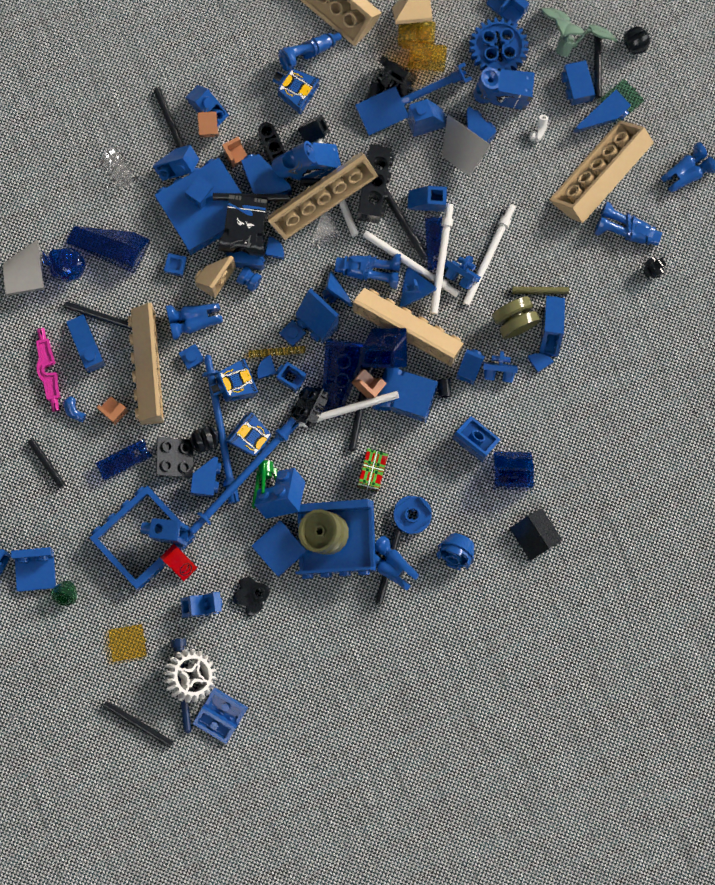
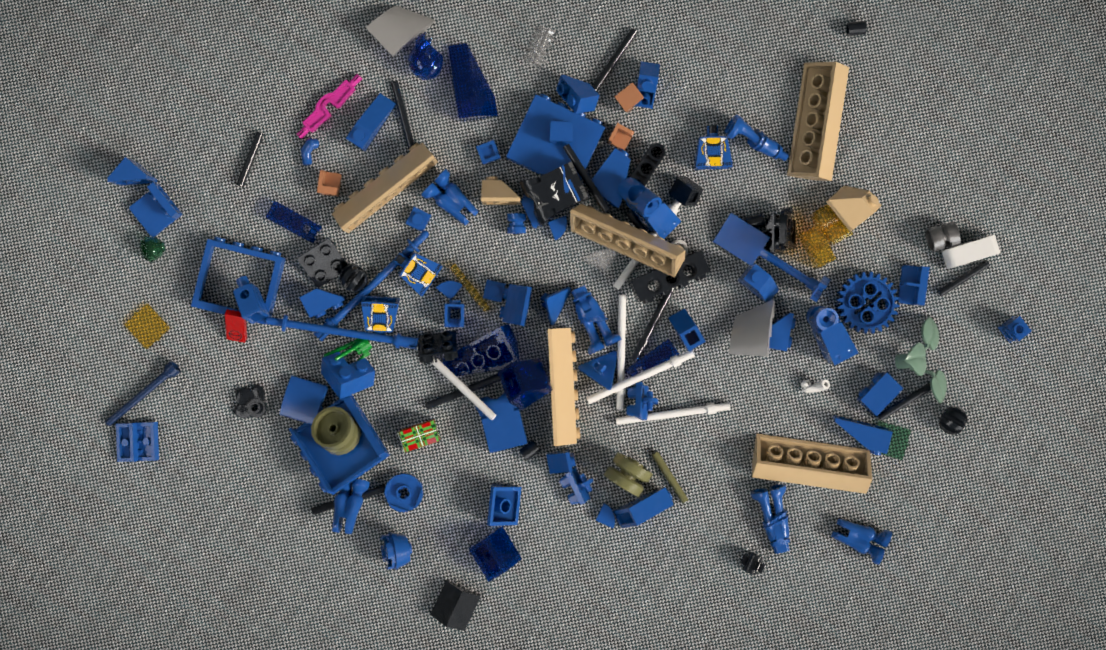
camera: 60 degrees right, 10 degrees up
(138, 724) = (87, 379): black bar -> none
(197, 662) = (134, 402): white gear -> none
(201, 605) = (214, 367): blue brick -> none
(368, 384) = (488, 386): nougat panel -> none

